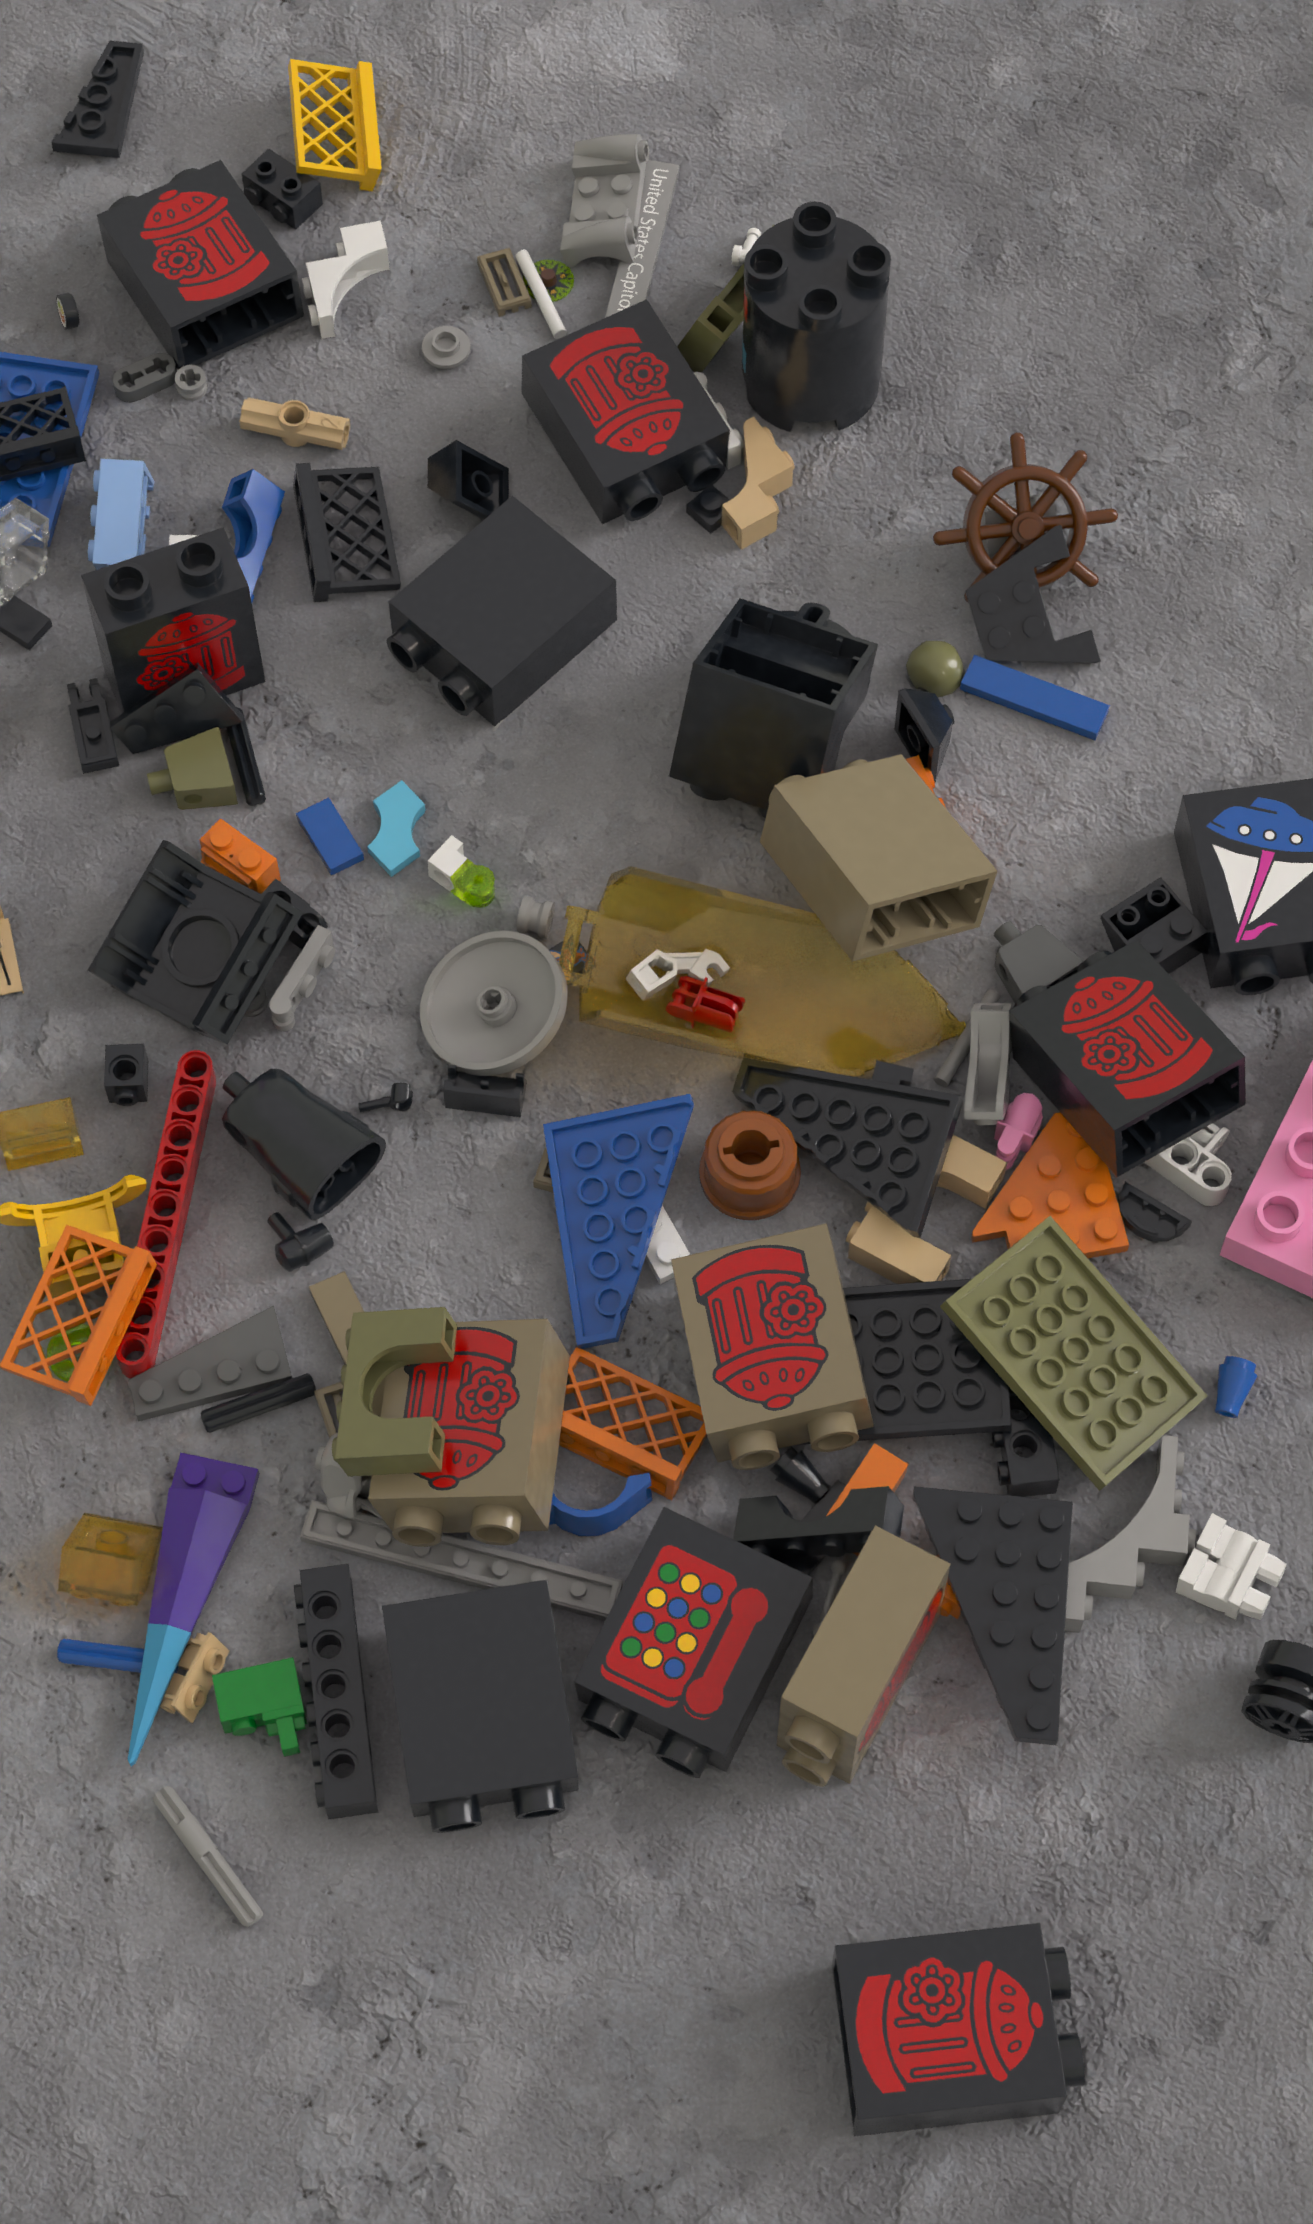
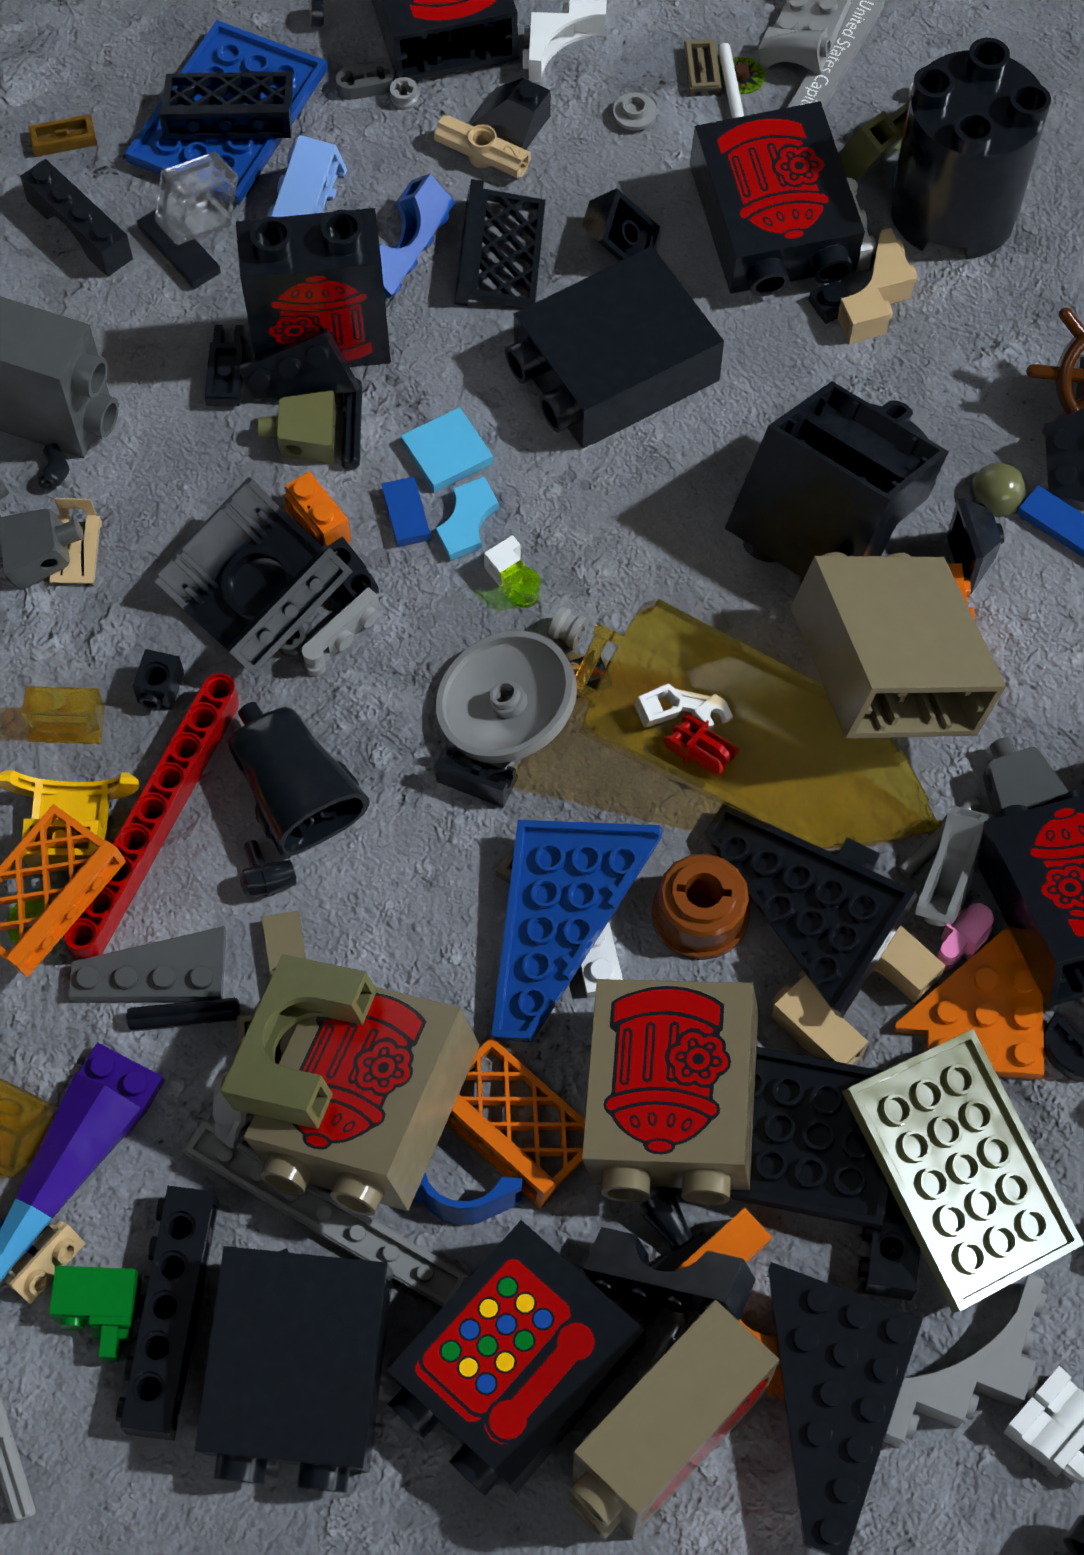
camera: 15 degrees right, 0 degrees up
(318, 377) = (516, 111): none -> black slope
(353, 760) = (447, 449): none -> medium azure tile
(399, 1100) = (396, 764): black hand -> none

